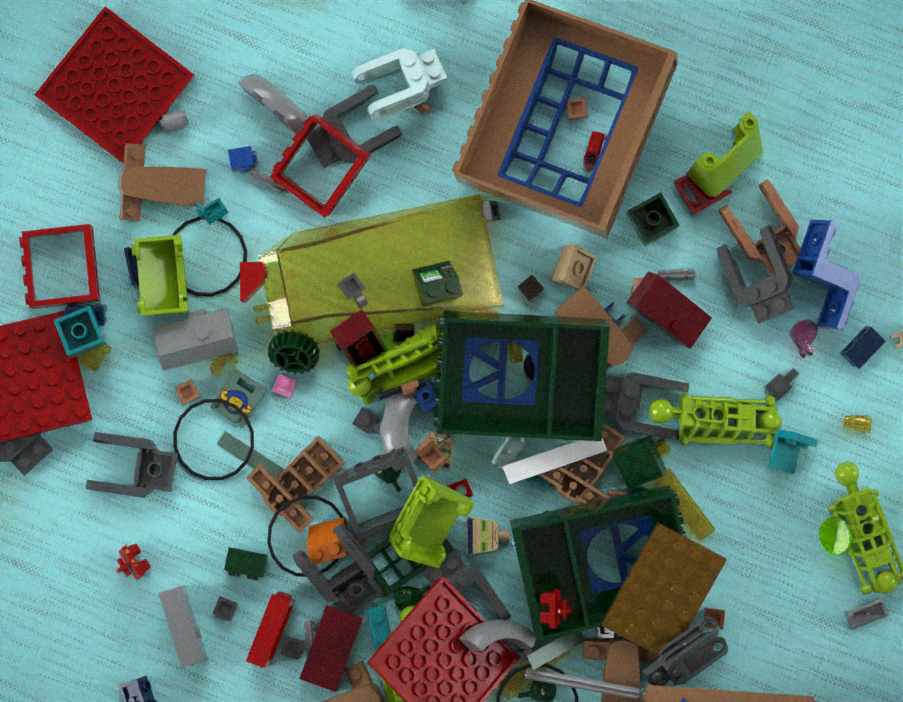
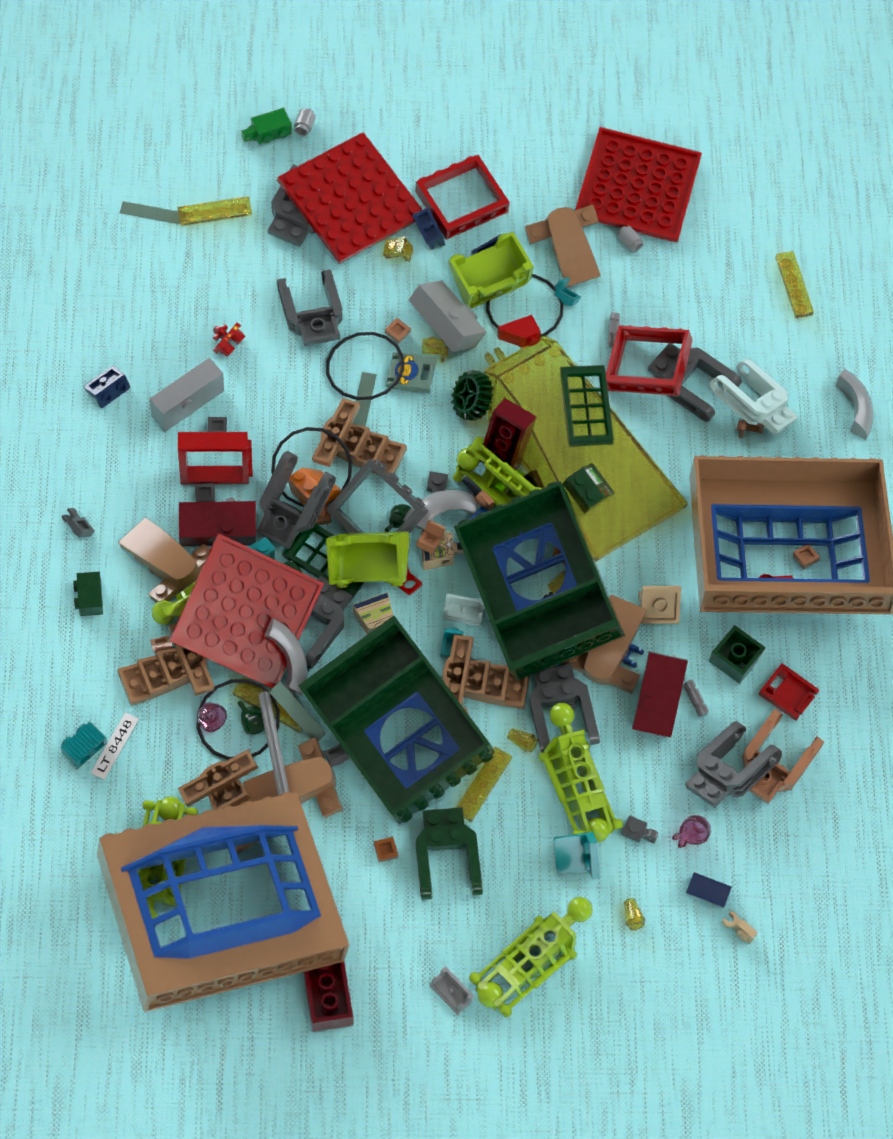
camera: 60 degrees right, 20 degrees down
(80, 331) = (412, 221): teal brick -> none
(242, 159) = (623, 301): blue brick -> none
(245, 562) = (265, 427): dark green brick -> none
(275, 101) = (689, 303): light grey brick -> none
(284, 386) = (438, 406): bright pink tile -> none
(320, 239) = (586, 440): none -> dark green piece
(352, 288) = (551, 413): dark grey plate -> none
(490, 211) = (676, 516): dark grey plate -> none
(530, 287) = (623, 575): dark brown plate -> none
(552, 459) = (475, 645): white sticker -> none
(553, 616) = (336, 684): red hips -> none
(639, 462) = (505, 722): dark green brick -> none
(663, 589) = (392, 777): pearl gold plate -> none
(686, 655) = (322, 816): dark grey plate -> none
(716, 174) = (825, 699): lime windscreen -> none
(730, 549) = (445, 831): none -> dark green plate
(835, 536) = (514, 931): clear neon green piece -> none
(838, 280) = (761, 824): blue bracket -> none

